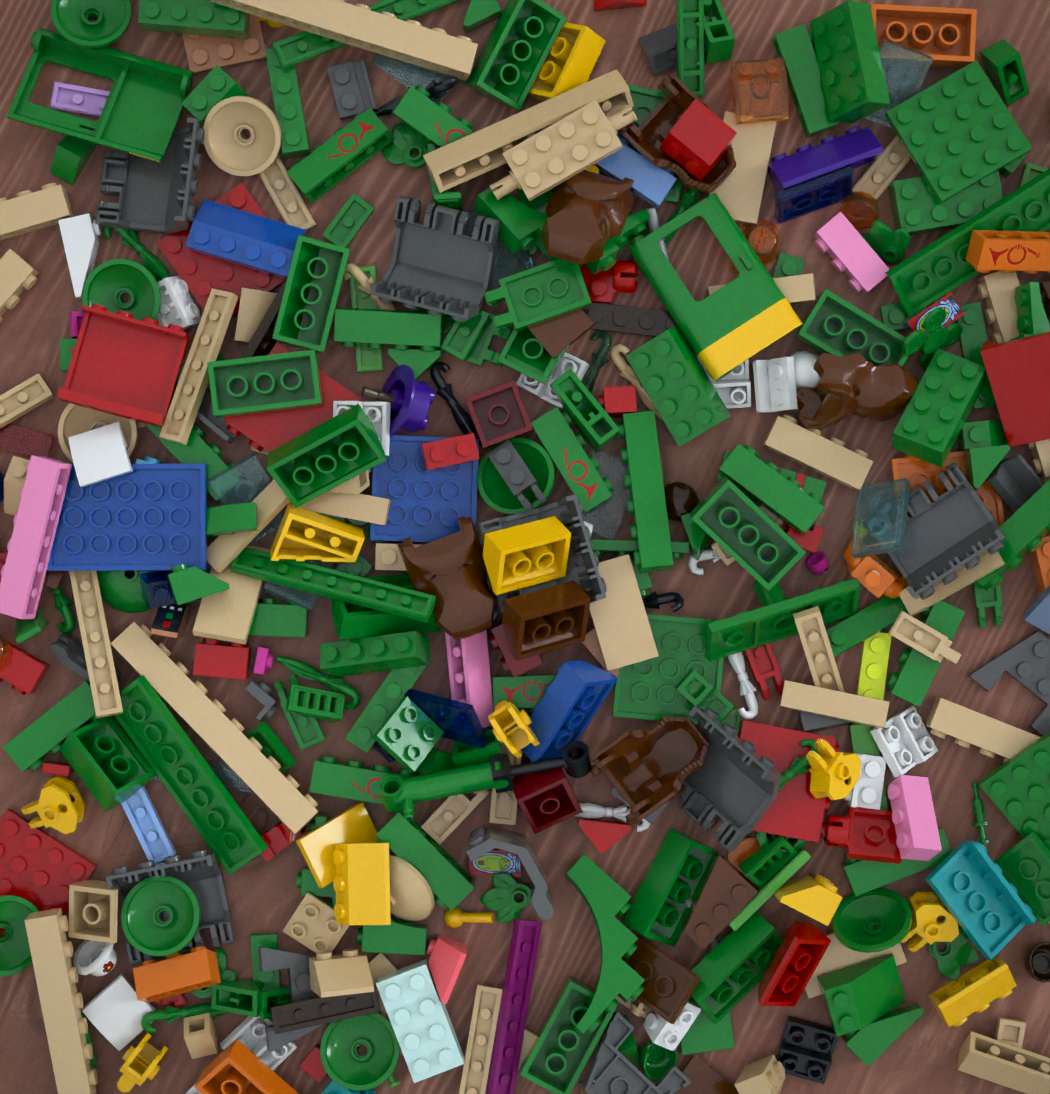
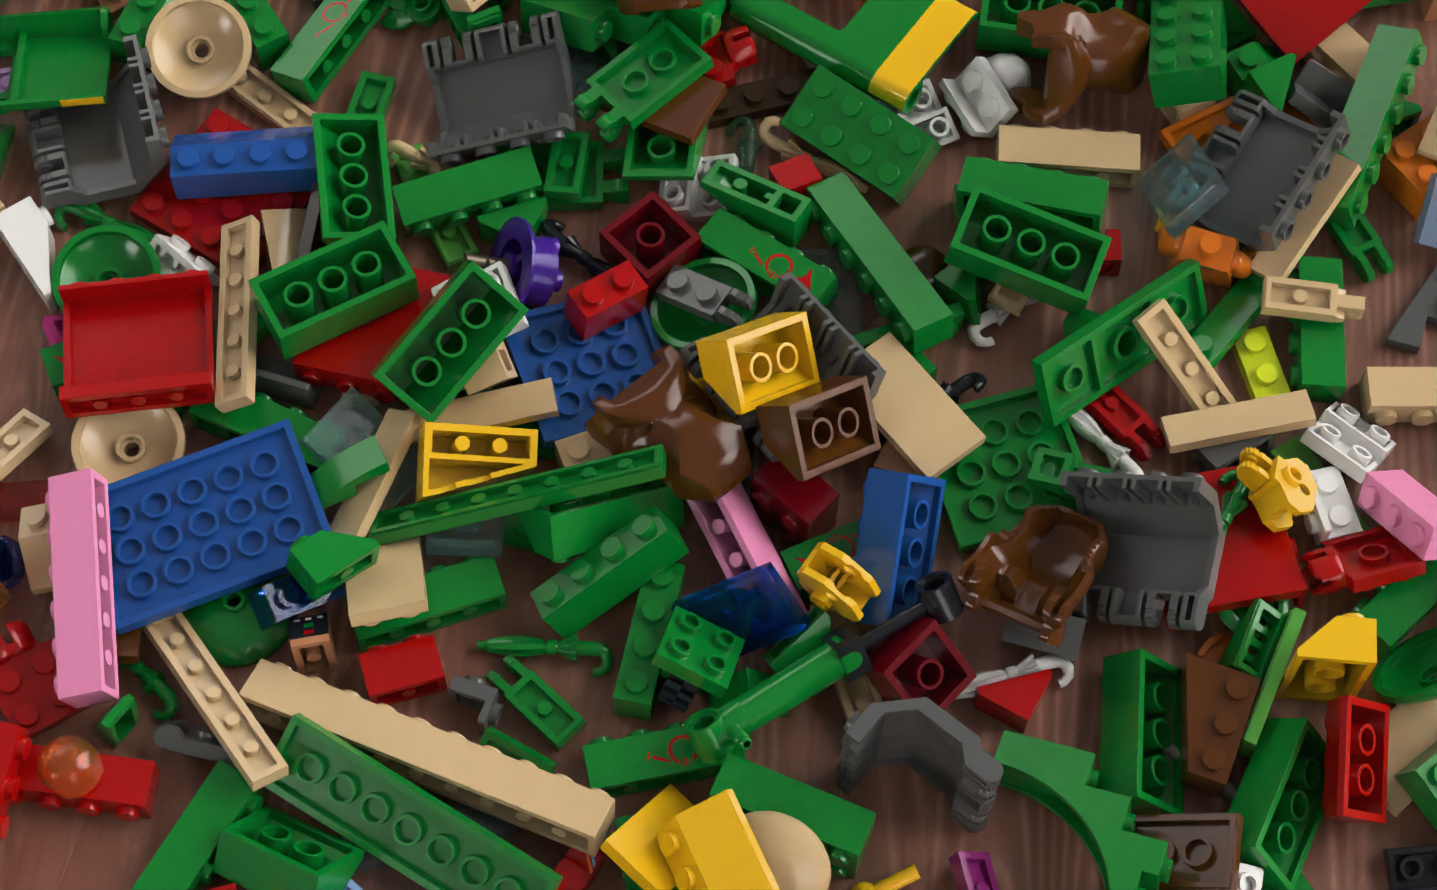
camera: 25 degrees left, 25 degrees down
(100, 454) = (142, 457): white slope -> none
(264, 660) = (460, 650): dark pink plate -> none
(331, 708) = (568, 674): green slope -> none
(451, 814) = (805, 740): tan plate -> none
(496, 862) = (893, 796): tile -> none
(503, 899) = (920, 840): green plate -> none
(817, 563) = (1131, 279): dark pink hinge -> none

